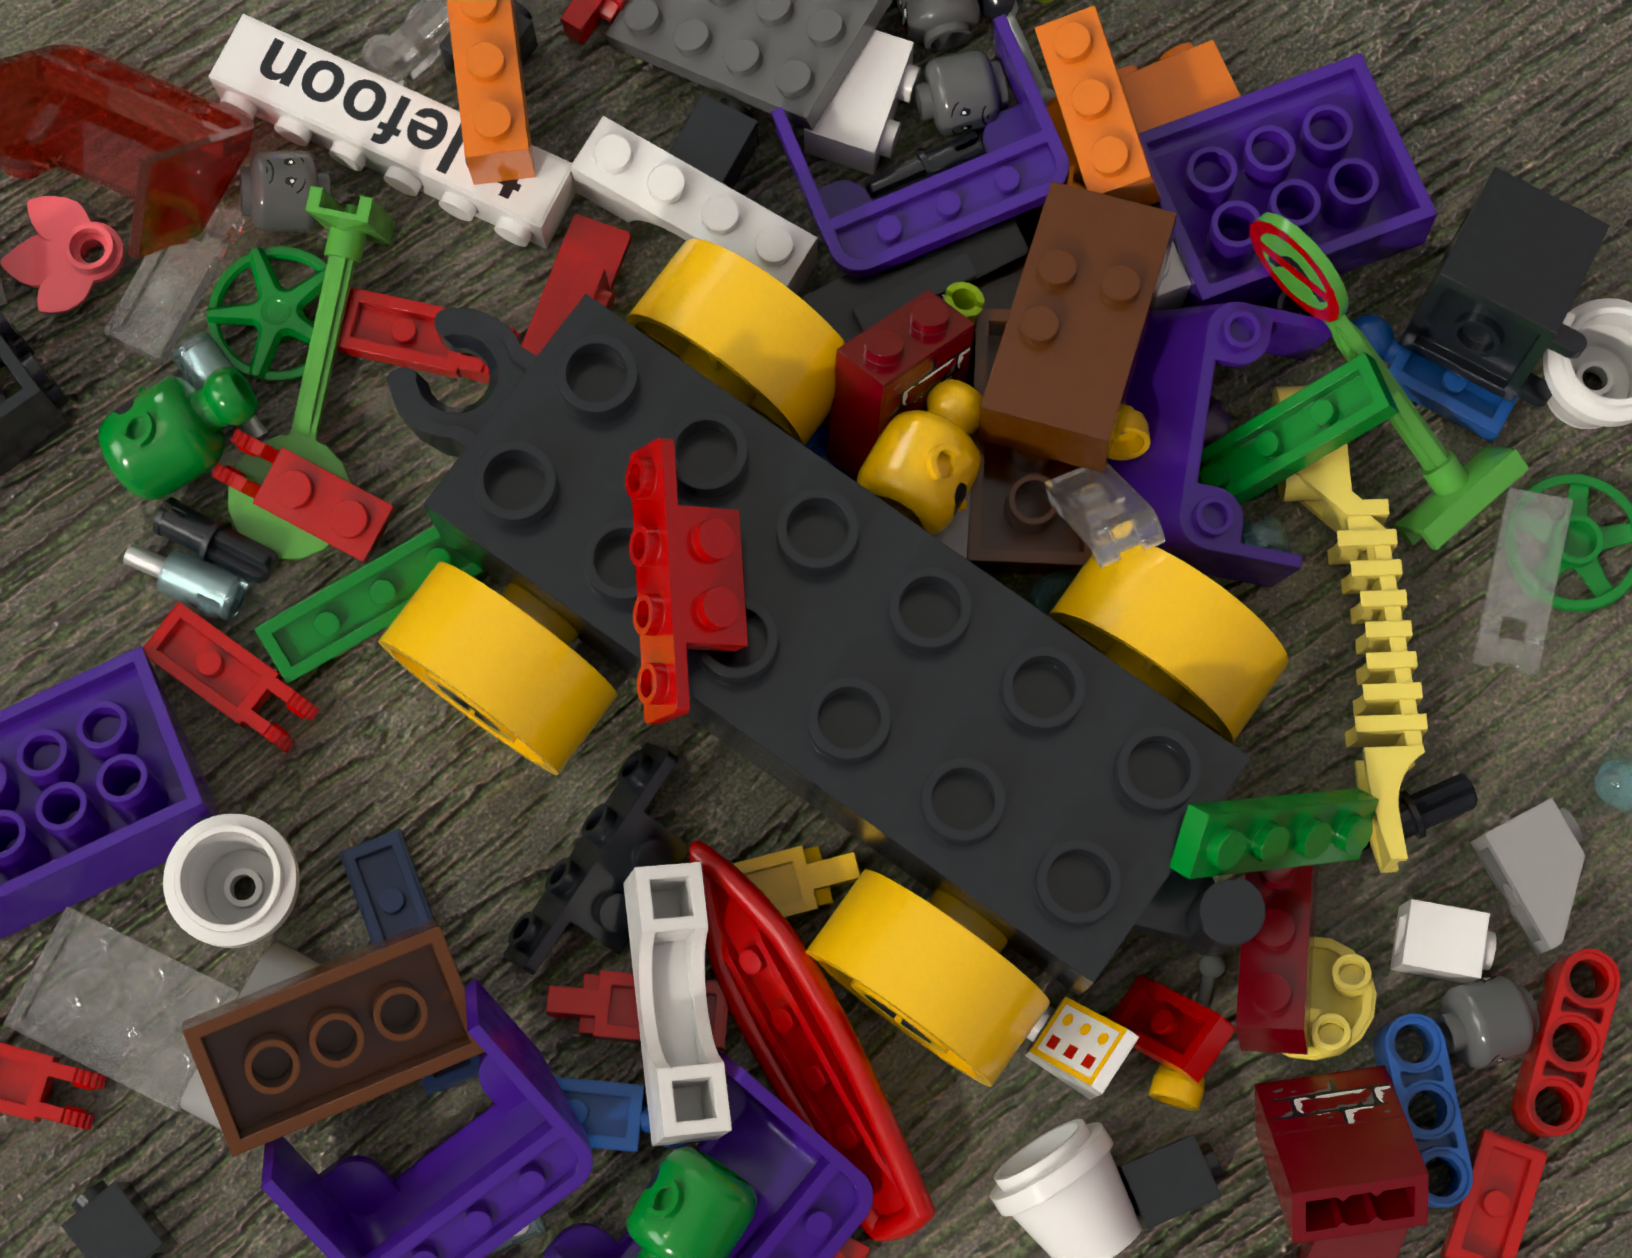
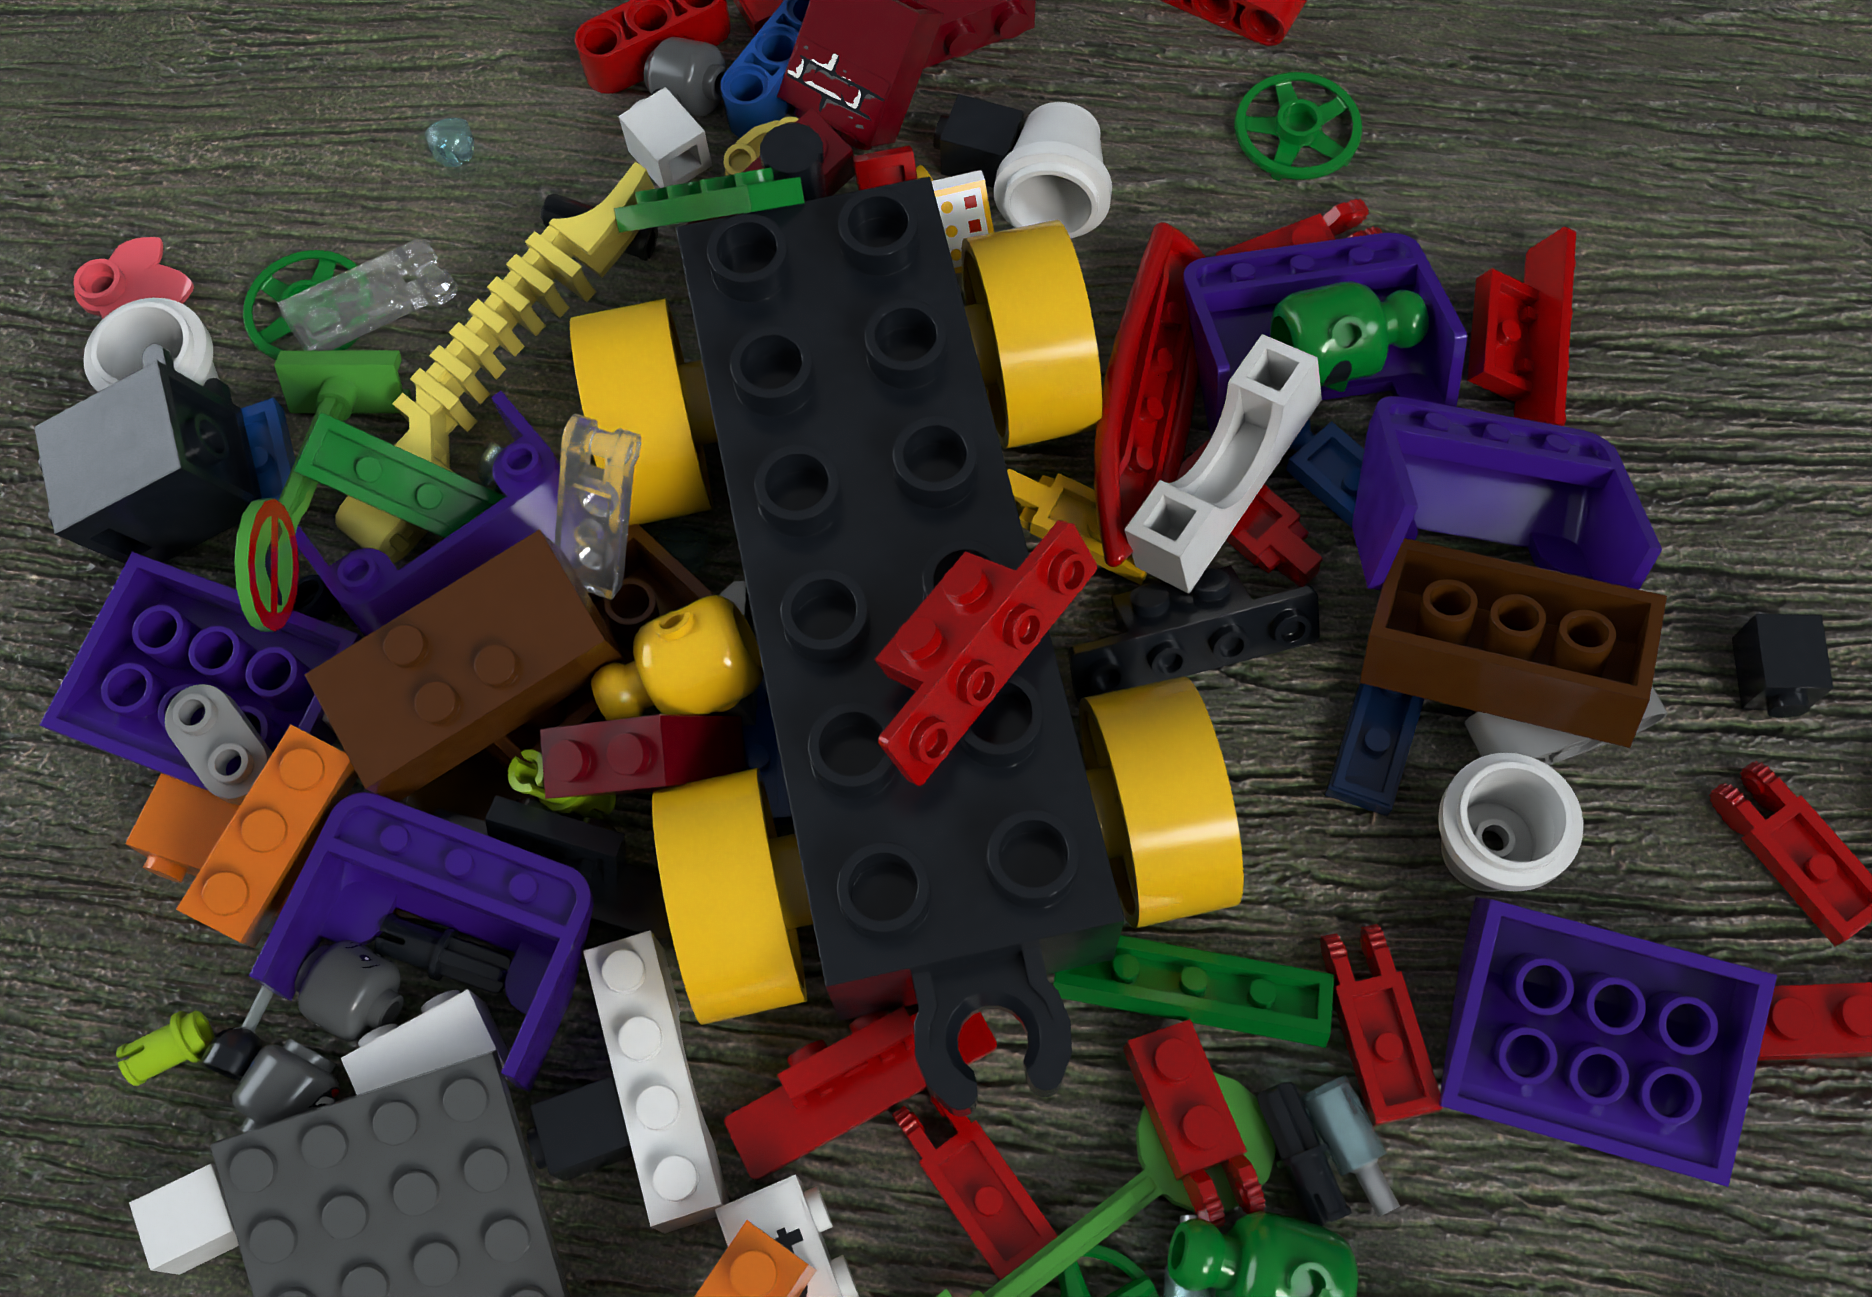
camera: 135 degrees left, 10 degrees down
(116, 1006) = (1665, 830): clear plate -> none
(1211, 149) = (217, 740): none -> light grey plate
(1536, 870) = (560, 133): light grey slope -> none

